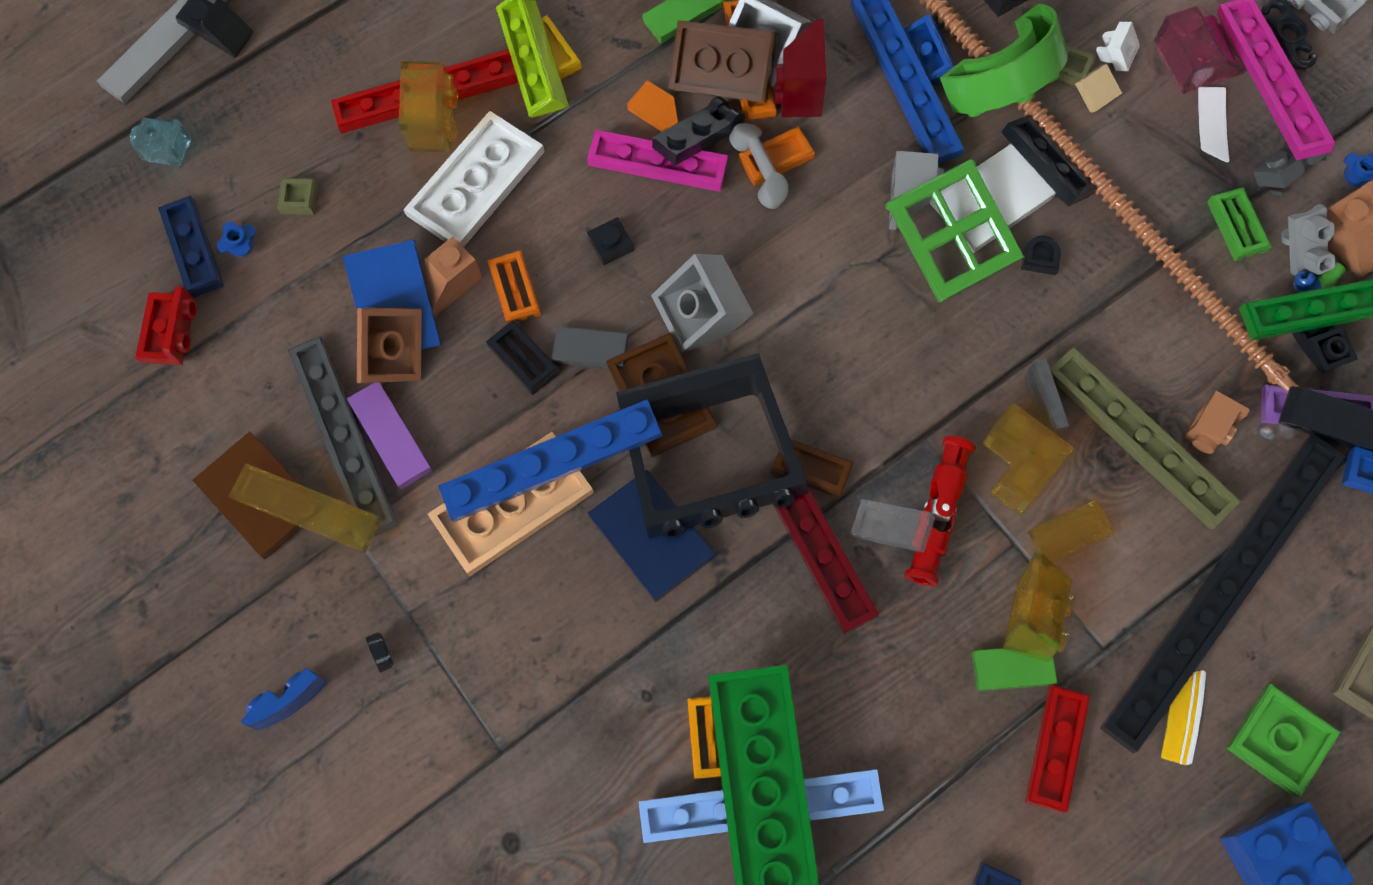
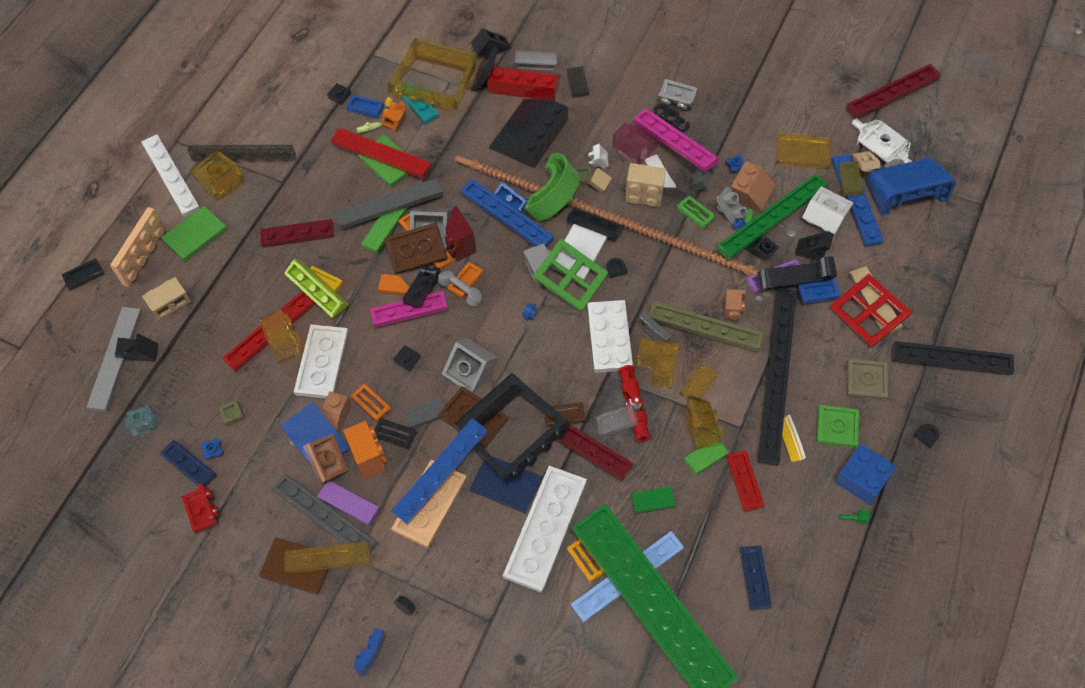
camera: 30 degrees left, 10 degrees down
(454, 362) = (365, 449): none -> orange brick
(670, 647) = (545, 529): none -> white plate
(852, 261) = (530, 311): none -> blue plate
(879, 696) = (653, 500): none -> green tile
(964, 369) = (609, 335): none -> white plate
(1174, 132) = (645, 185): none -> tan brick

